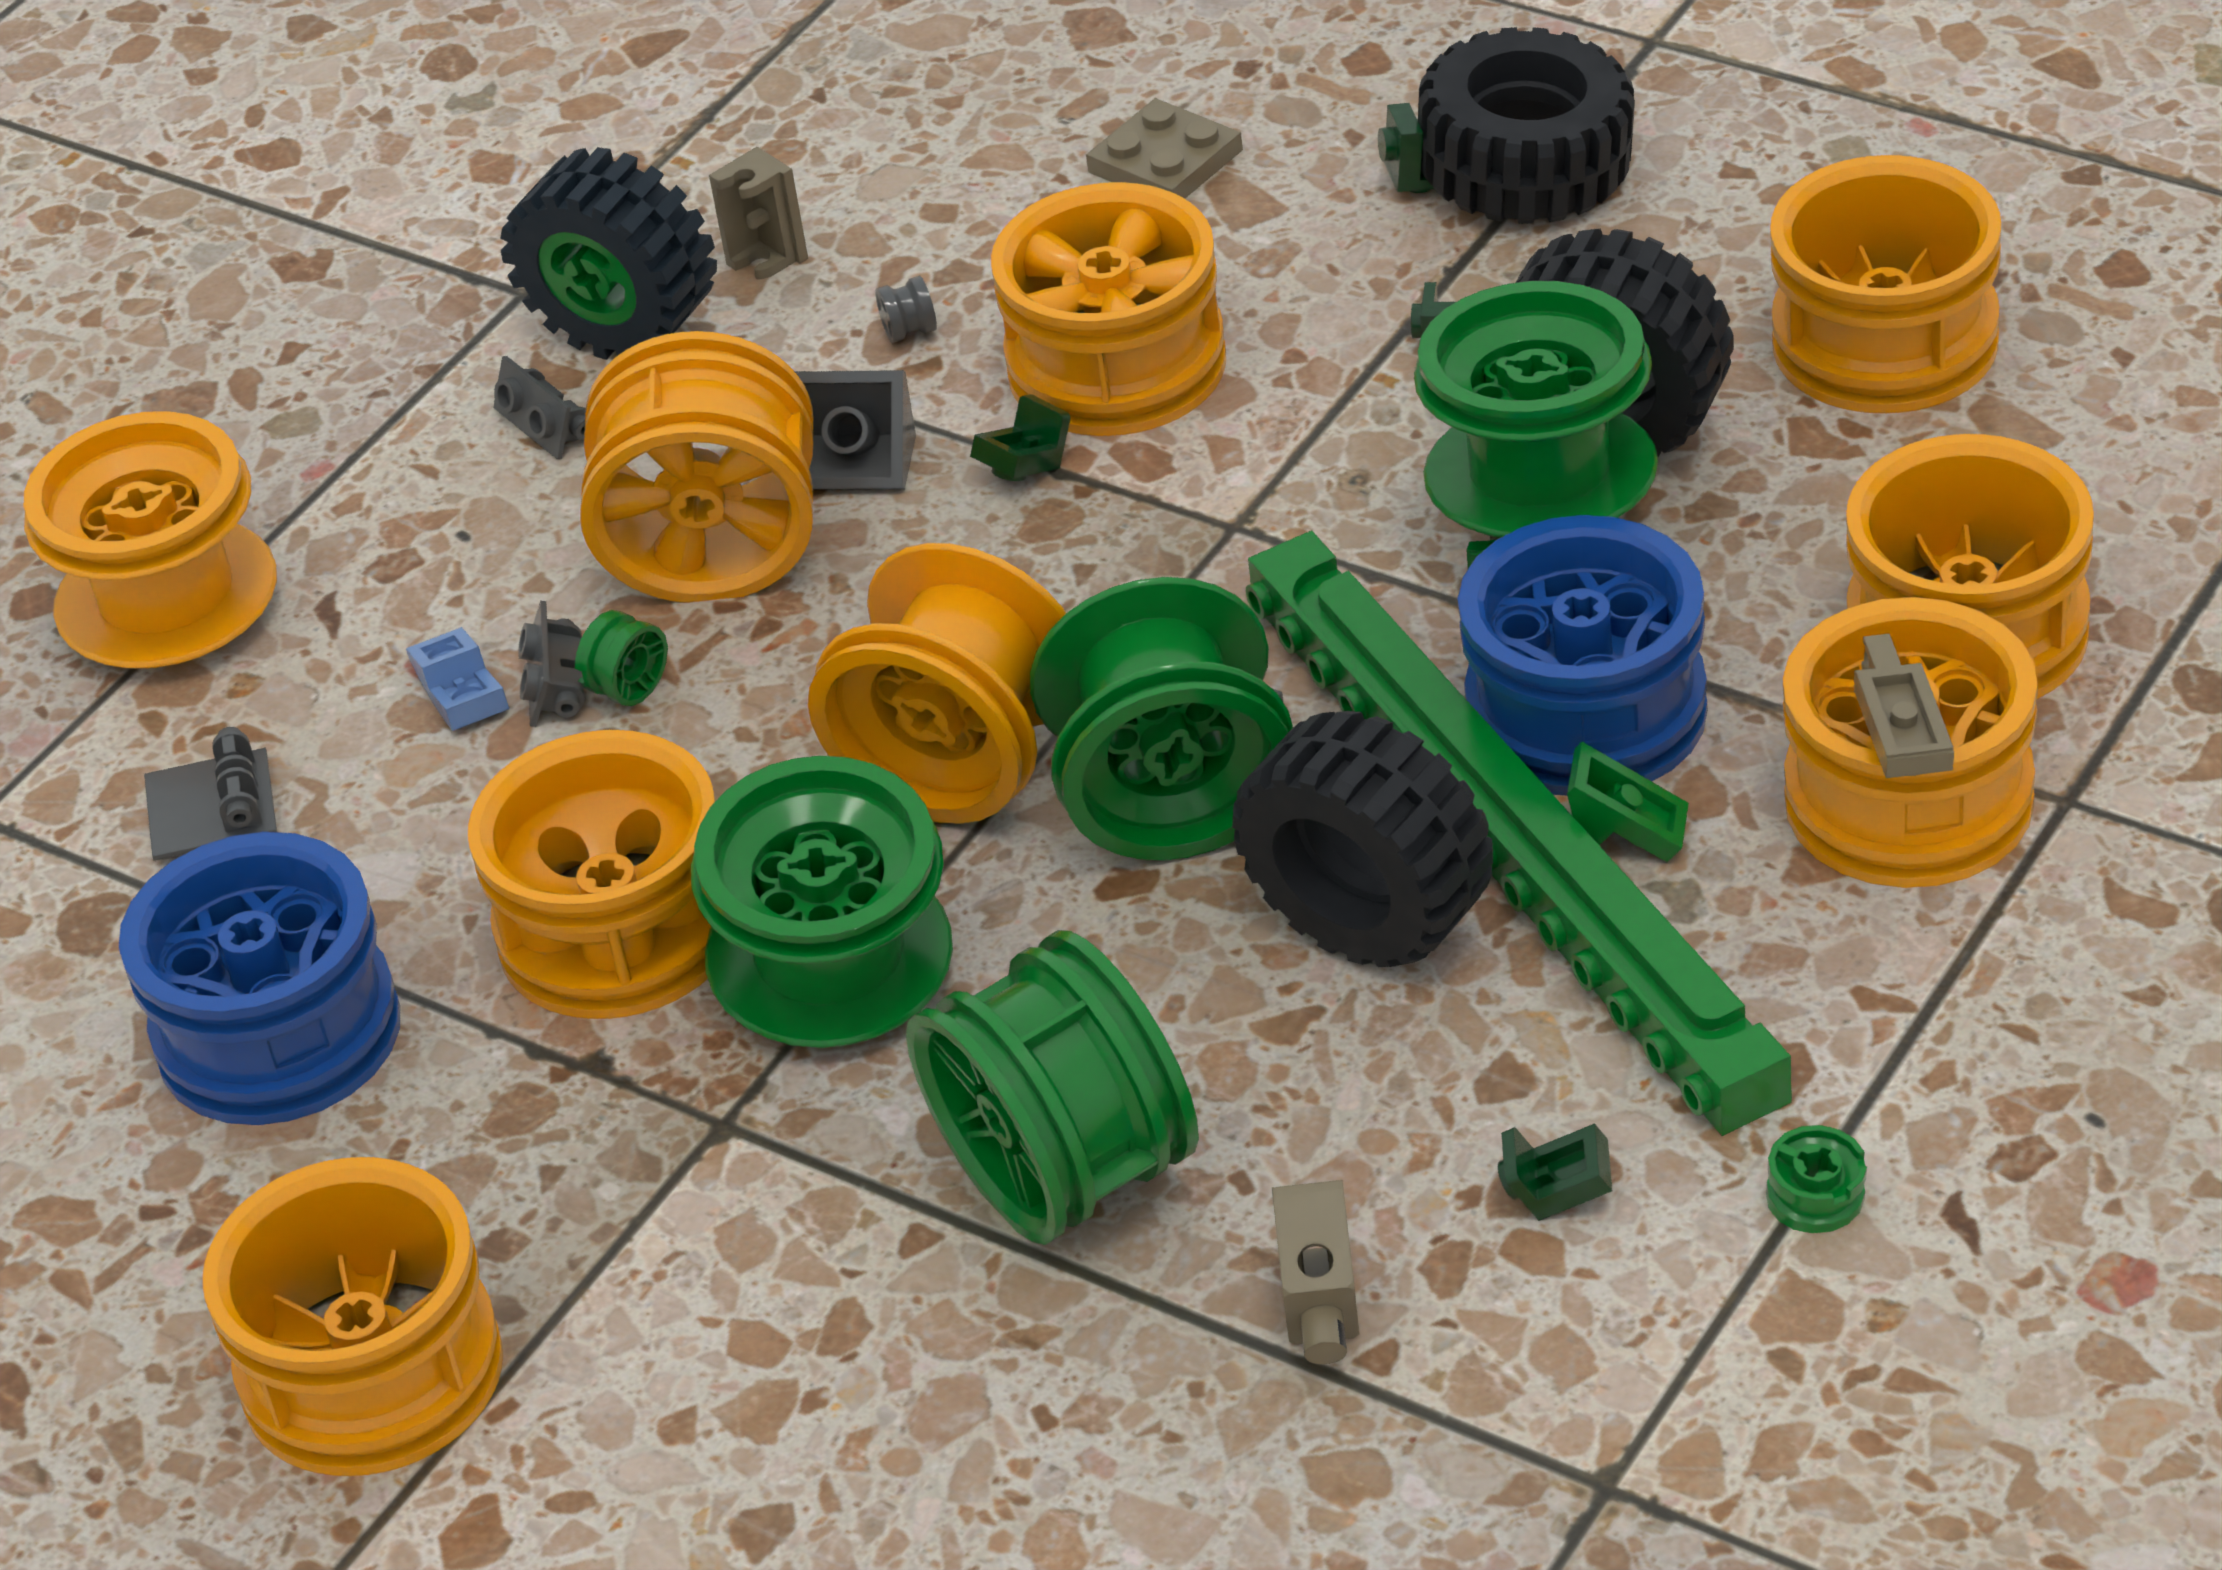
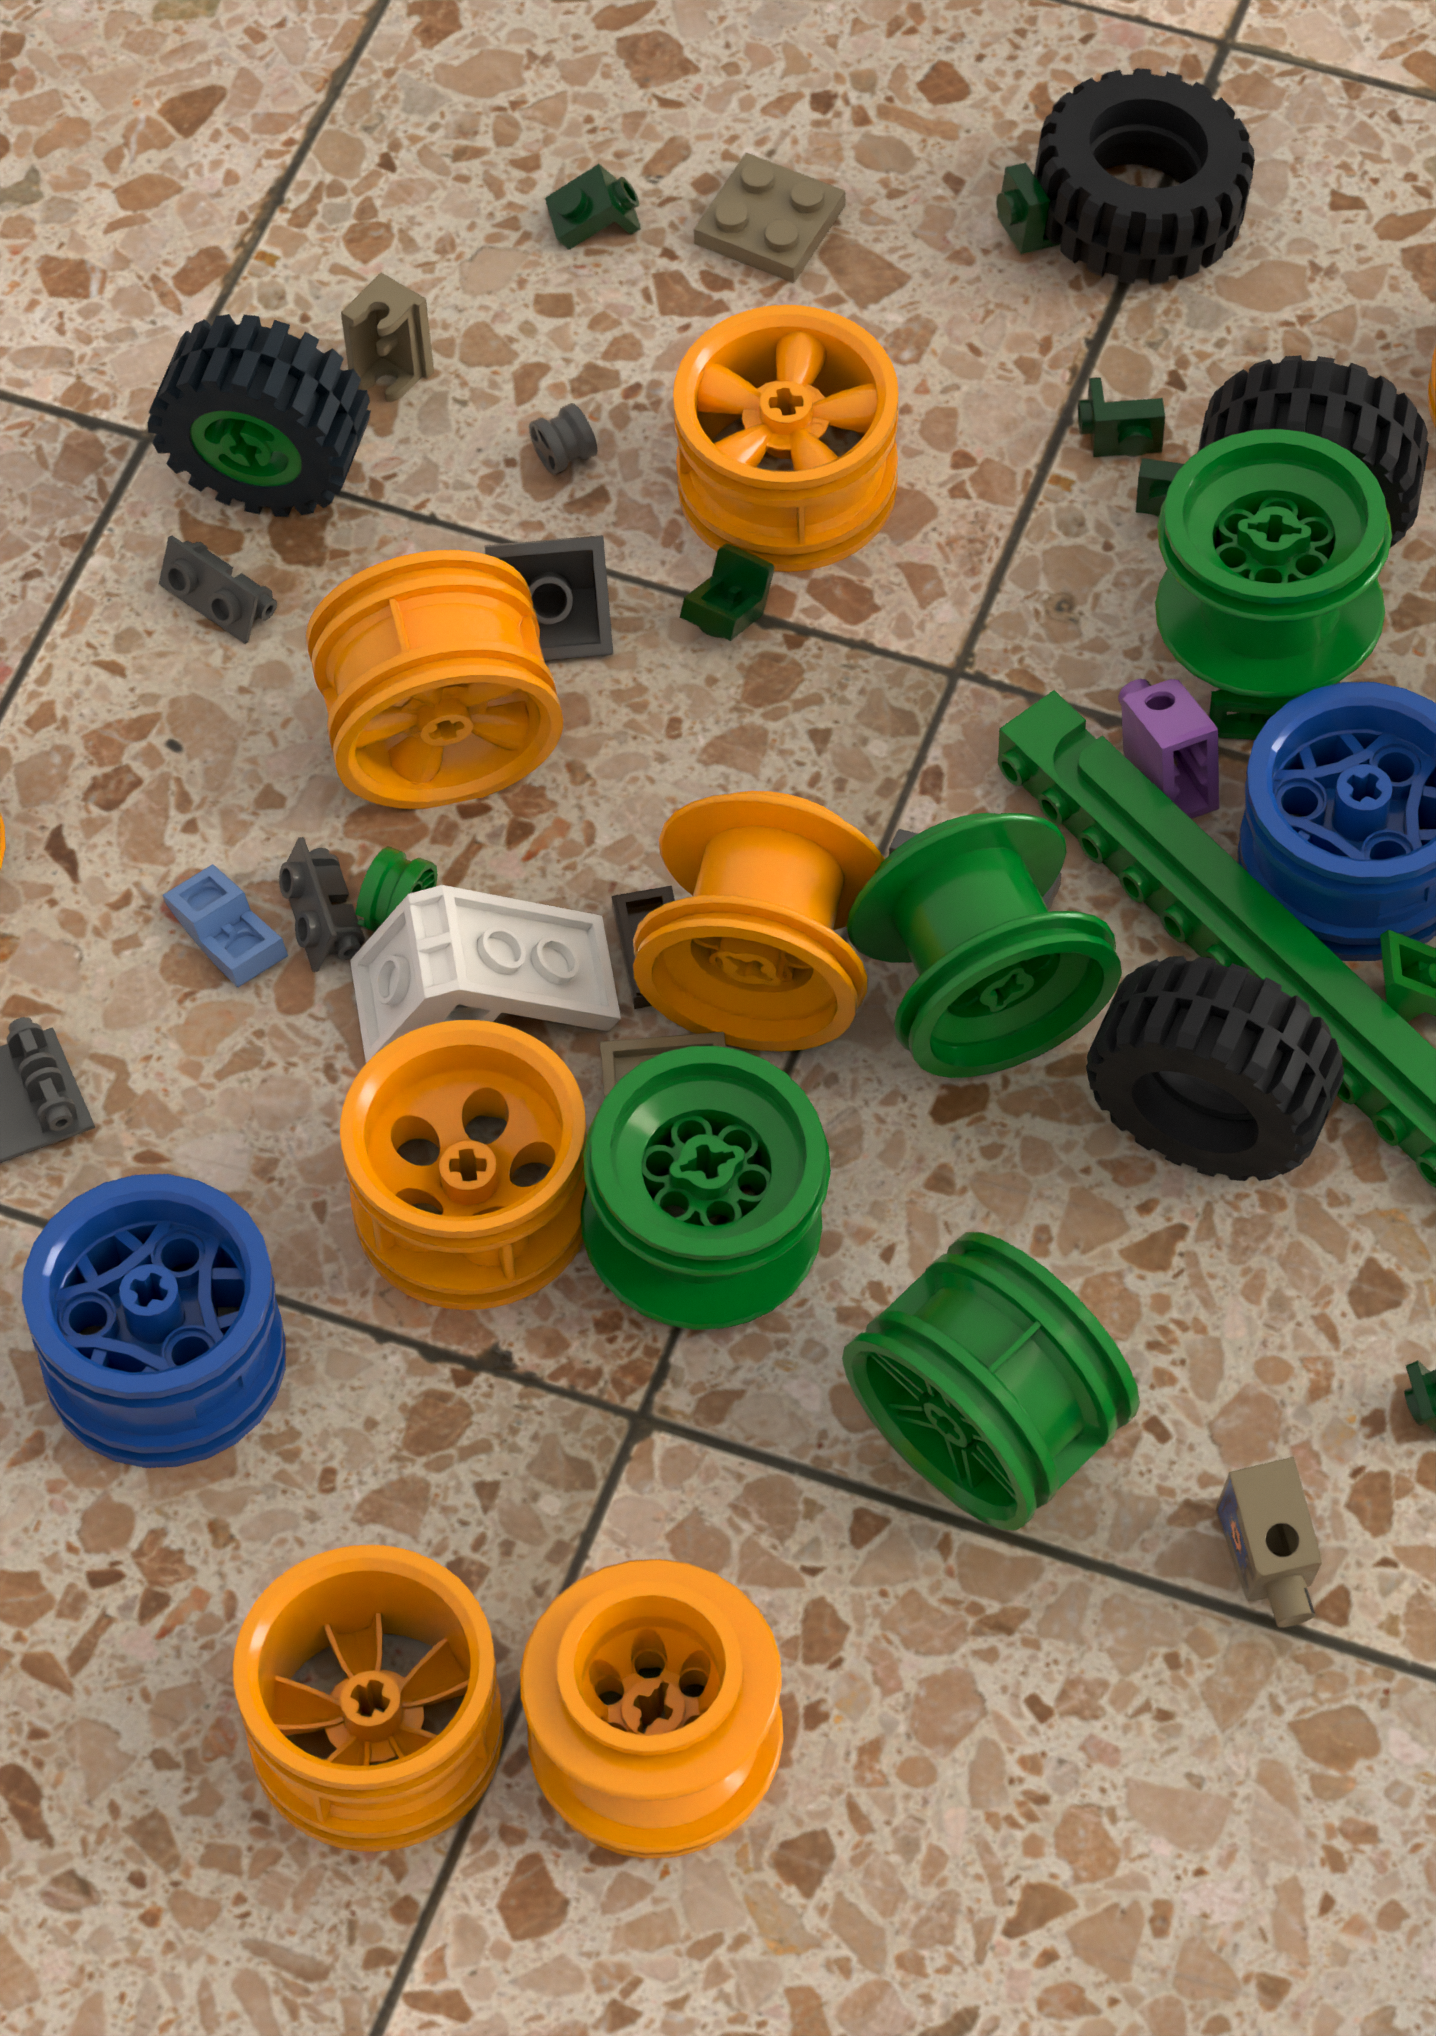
camera: 15 degrees left, 15 degrees up
(629, 1353) = (688, 1773): none -> light orange wheel
(694, 700) = (480, 956): none -> white bracket
(994, 126) = (592, 204): none -> dark green bracket
(1419, 572) = (1167, 725): none -> medium lavender torso

